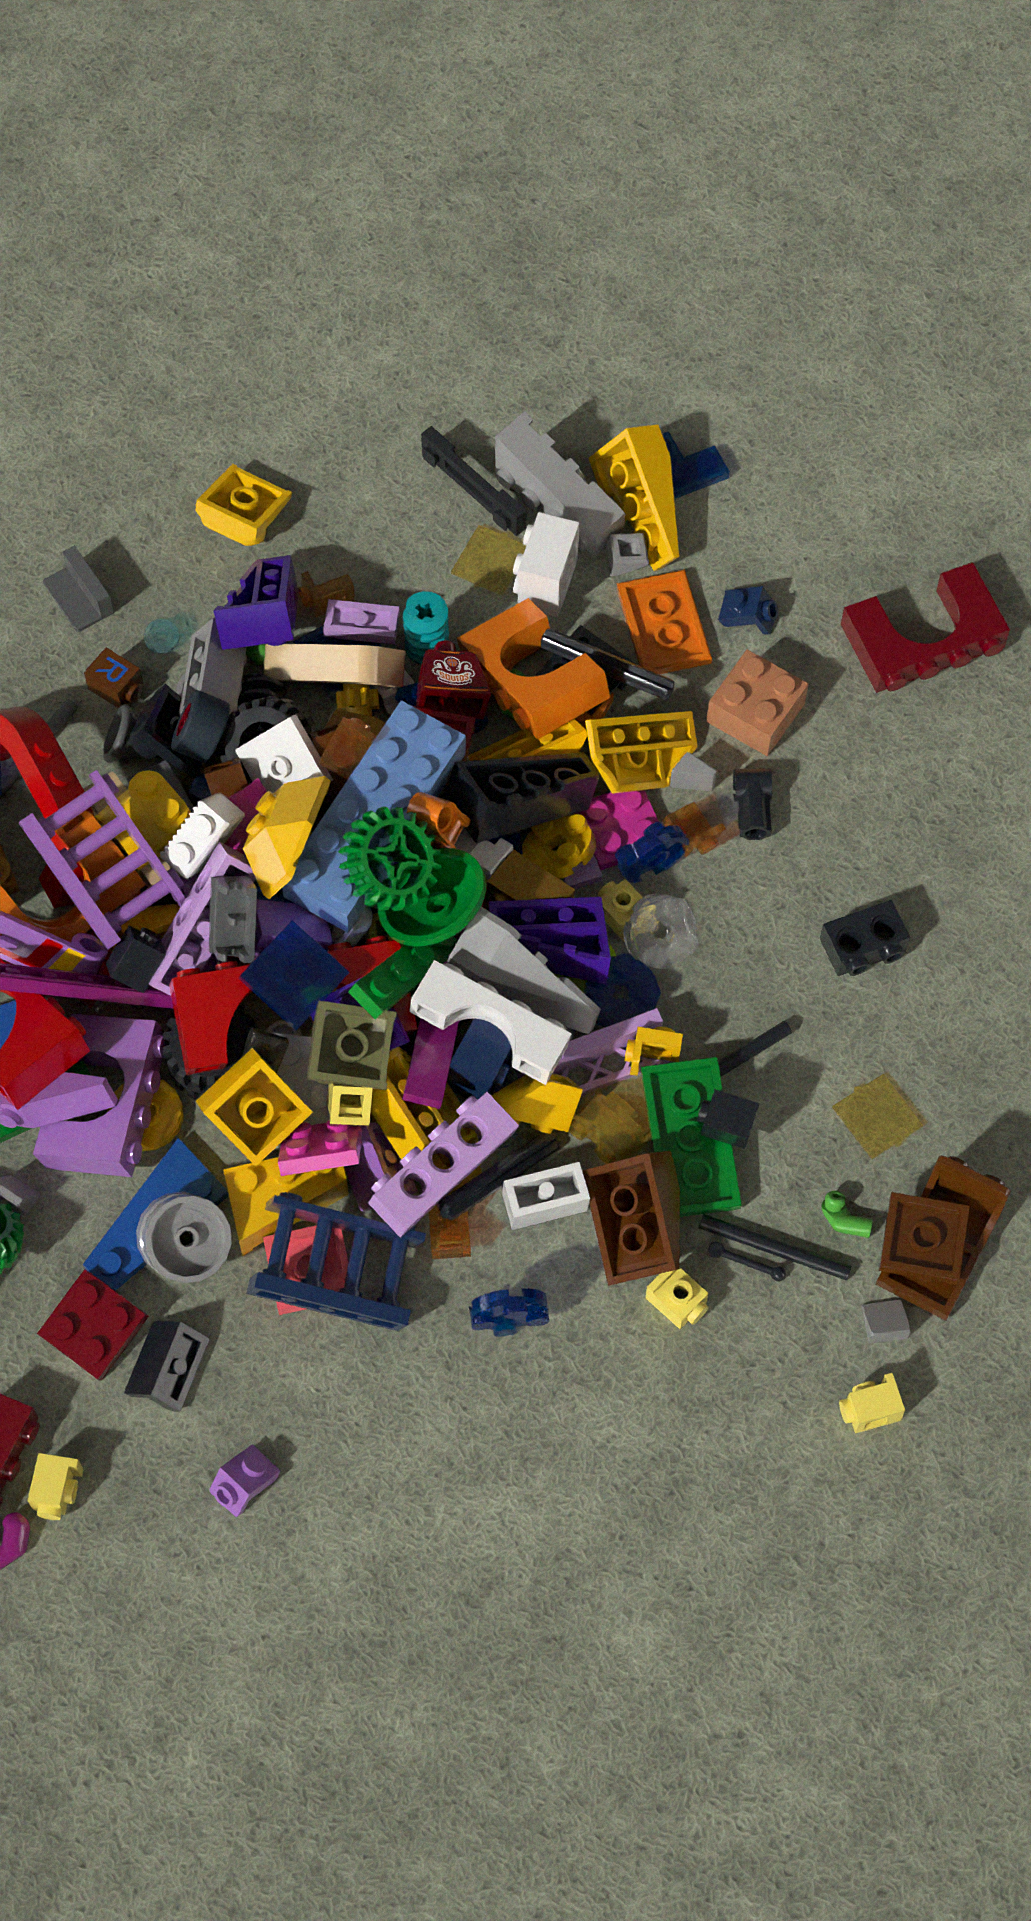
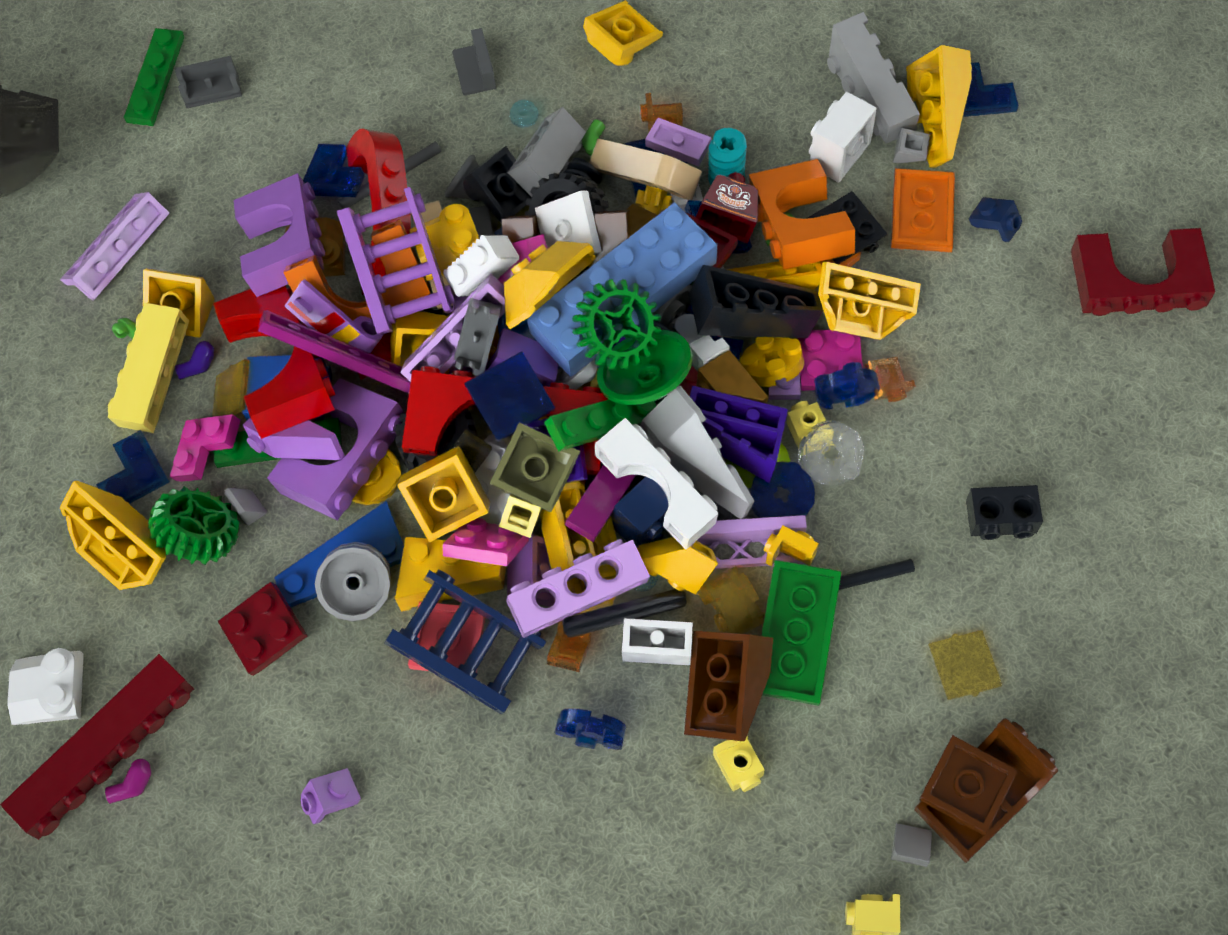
camera: 25 degrees right, 0 degrees up
(54, 1485) = (179, 748): light yellow brick -> none
(114, 679) = (475, 135): reddish brown brick -> none
(136, 958) = (398, 348): black brick -> none
(167, 1364) = (307, 680): black panel -> none
(200, 726) = (516, 183): black wheel -> none
(262, 607) = (604, 109): dark purple wedge -> none
(347, 747) = (618, 226): clear orange bracket -> none
(442, 818) = (671, 305): orange piece -> none
(488, 560) = (796, 123): clear yellow piece -> none
(503, 507) = (823, 84): black container -> none
(612, 665) = (864, 227): black axle -> none
(693, 774) = (903, 334): light grey slope -> none
(717, 1250) = (787, 734): black hinge -> none
(728, 1118) = (831, 626): black brick -> none
(753, 800) = (948, 367): black piece -> none
(757, 702) = (977, 292): nougat brick -> none
(775, 1247) = (838, 748): black bar -> none
(841, 1219) = (903, 742): bright green arm -> none

